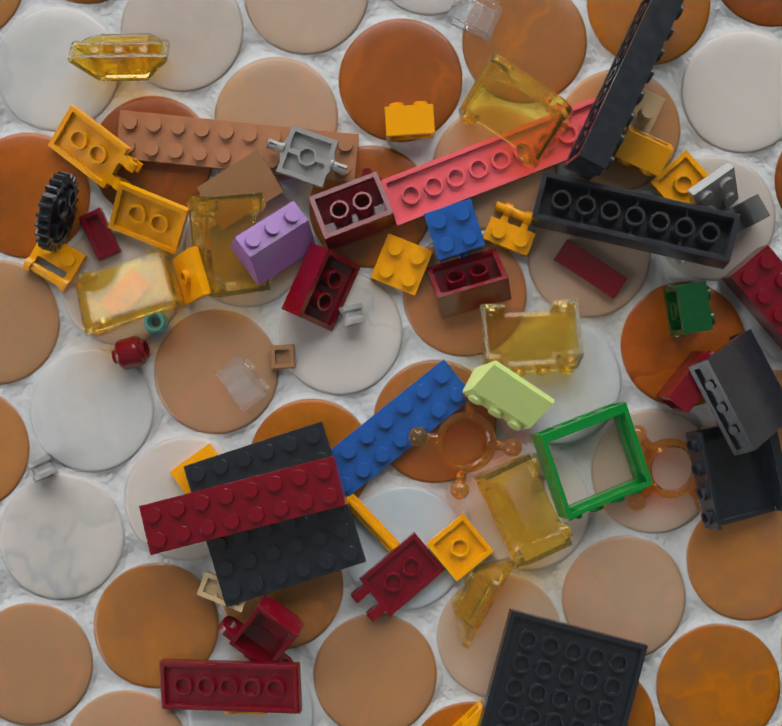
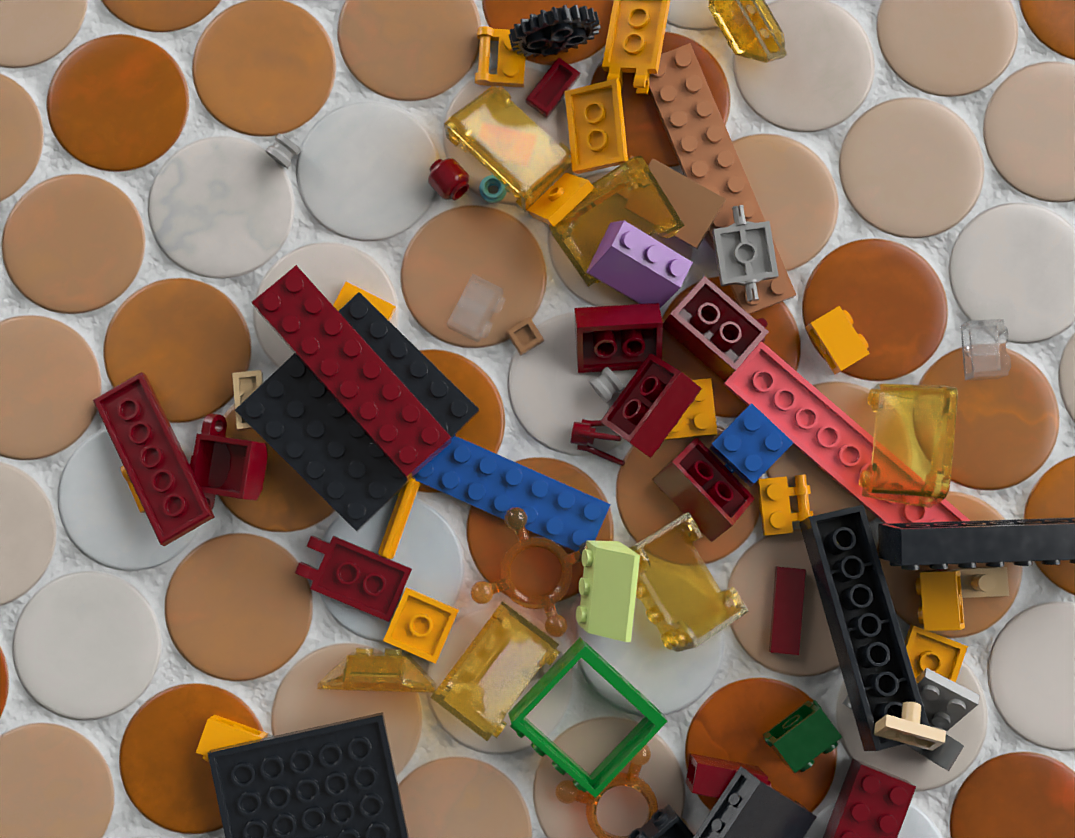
camera: 60 degrees right, 5 degrees down
(381, 351) = (584, 434): none -> dark red plant
(386, 290) = (651, 405): none -> dark red slope
(727, 229) = (908, 728): none -> tan tile

